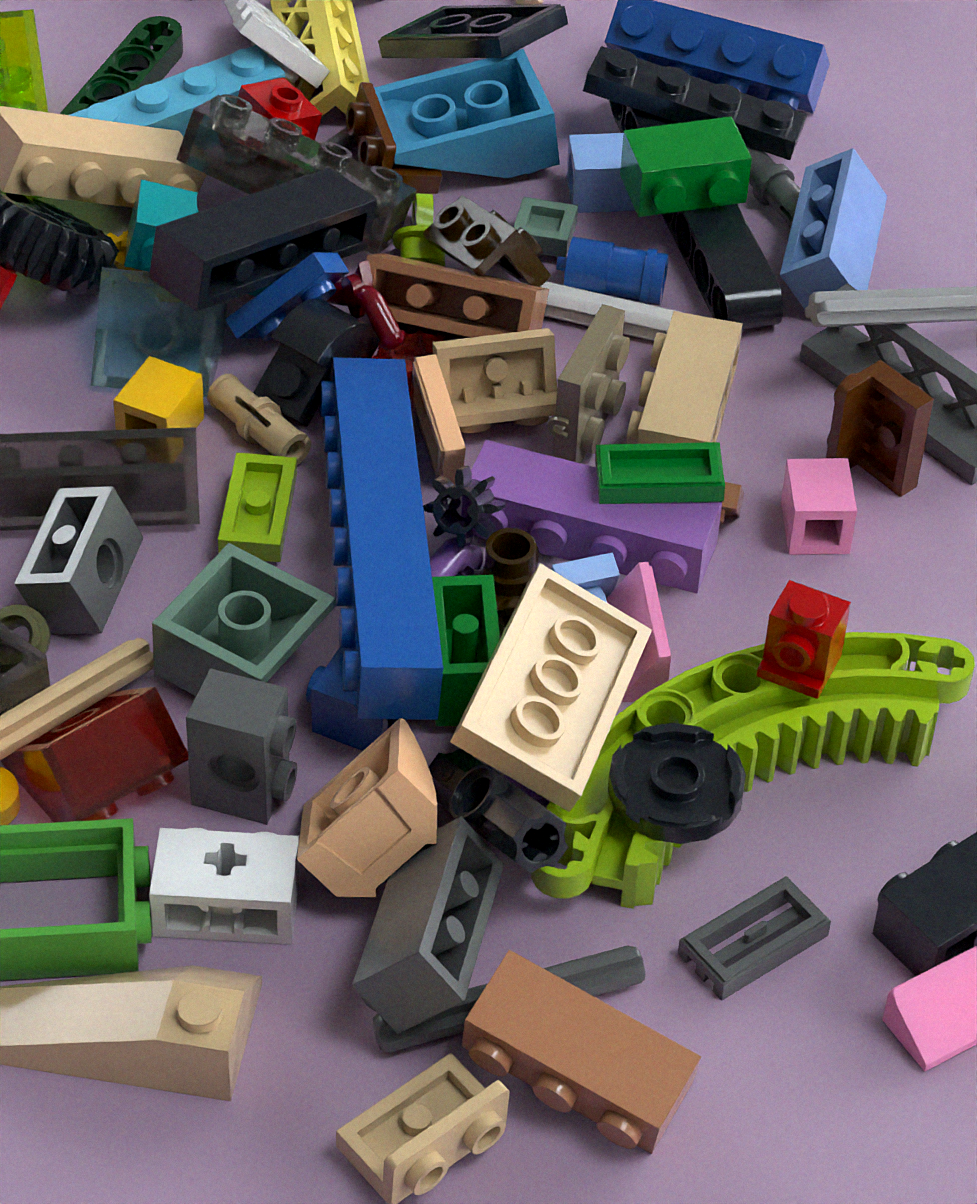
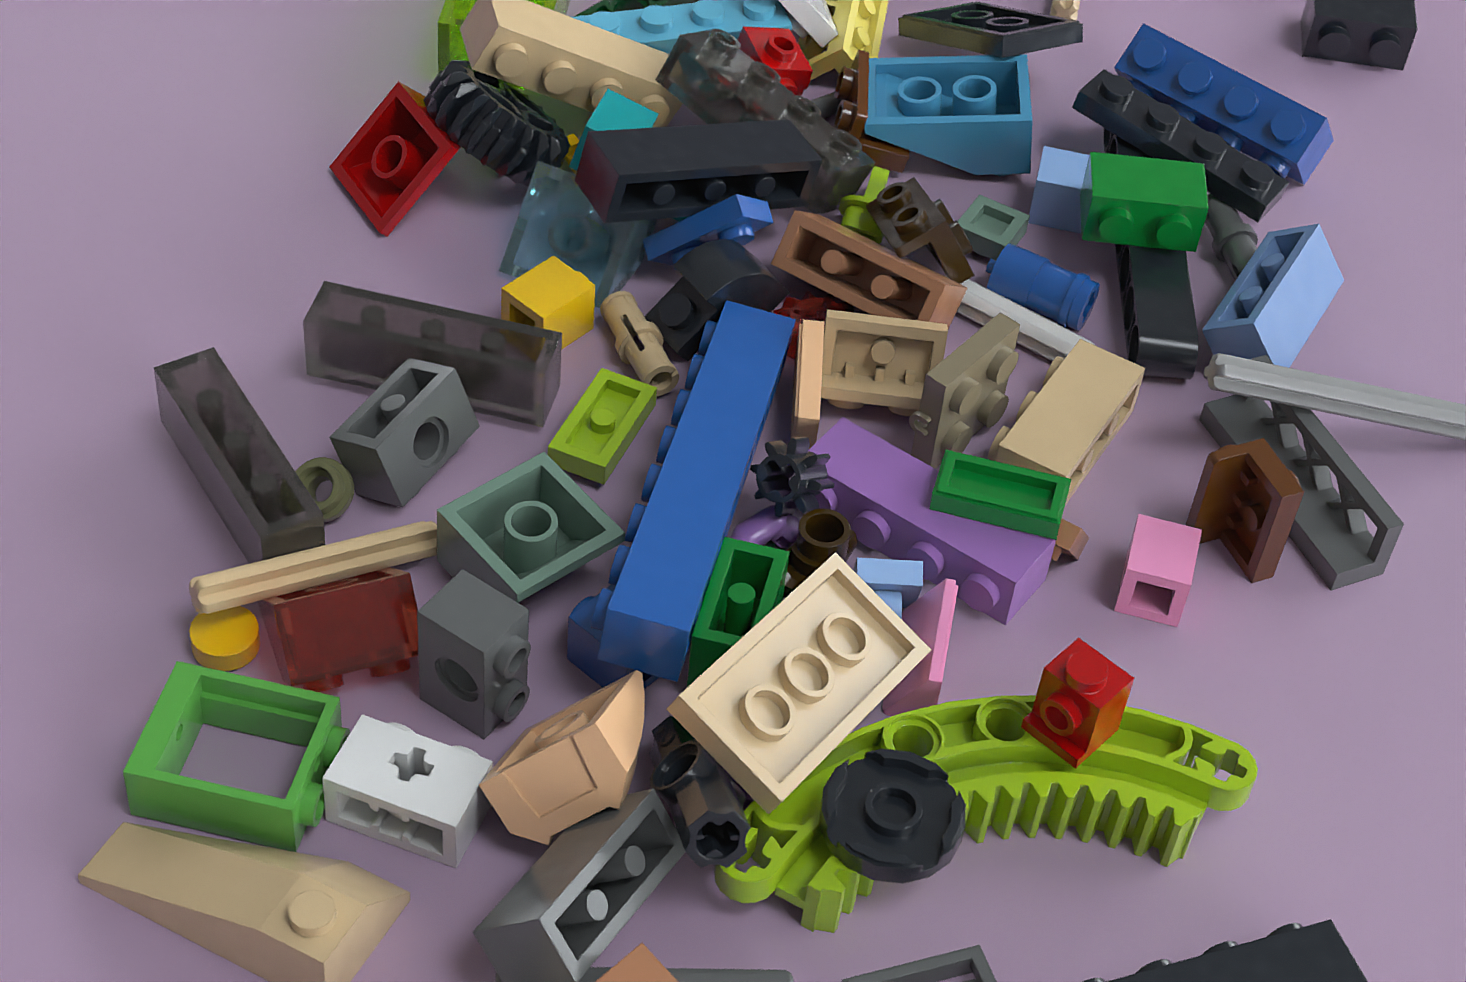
camera: 15 degrees right, 0 degrees up
(361, 297) = (774, 245): dark red piece -> none

